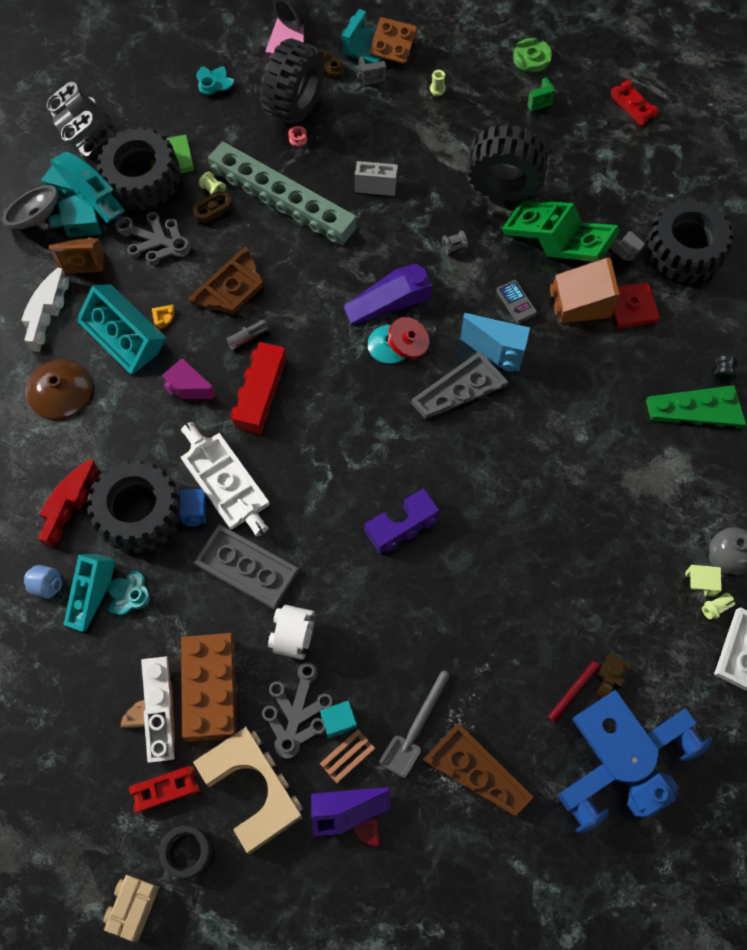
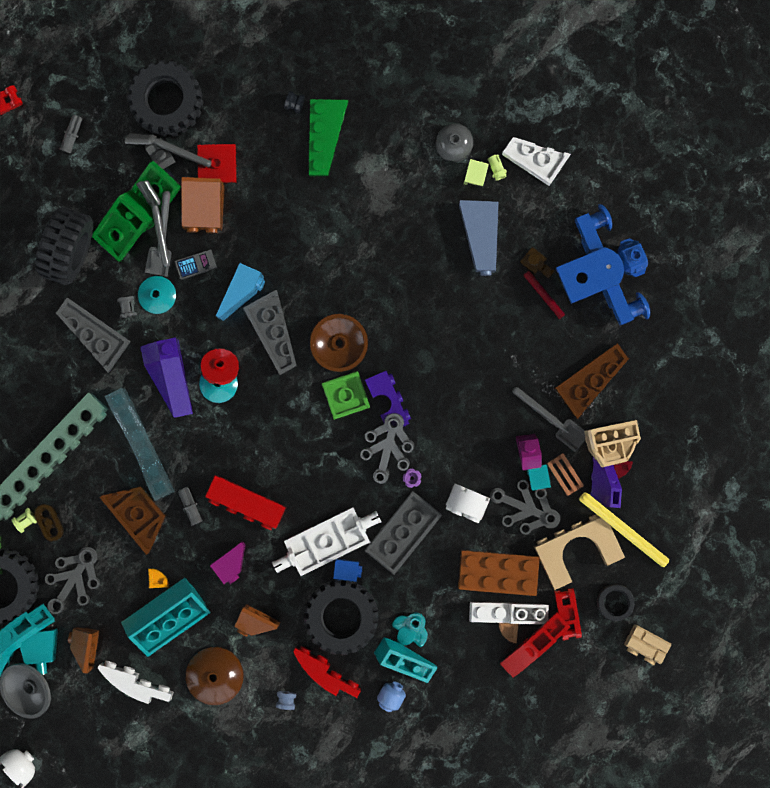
camera: 80 degrees left, 20 degrees up
(33, 464) = (286, 700): none -> sand blue wheel
(120, 750) = (535, 645): none -> red slope
(124, 414) = (255, 622): none -> dark orange slope
(278, 292) = (140, 443): none -> clear light blue arch
(283, 846) = (624, 529): none -> light yellow axle
(311, 560) = (410, 483): none -> medium lavender plate
(348, 527) = (388, 445): none -> dark grey plant
(368, 698) = (529, 451): none -> magenta slope
(376, 178) = (44, 366): light grey hinge -> none
(399, 809) = (613, 443): none -> tan wedge
(400, 476) = (345, 395): none -> bright green tile
(419, 218) = (98, 337): none -> dark grey wing
(461, 441) = (324, 342): none -> reddish brown dish
(474, 278) = (166, 296): none -> teal dish
(515, 264) = (154, 261): none -> dark grey piece
(552, 248) = (153, 201): none -> dark grey piece
(625, 167) = (71, 134): none -> dark grey axle
(636, 598) = (481, 225): none -> sand blue slope
(638, 250) = (149, 138): none -> dark grey piece

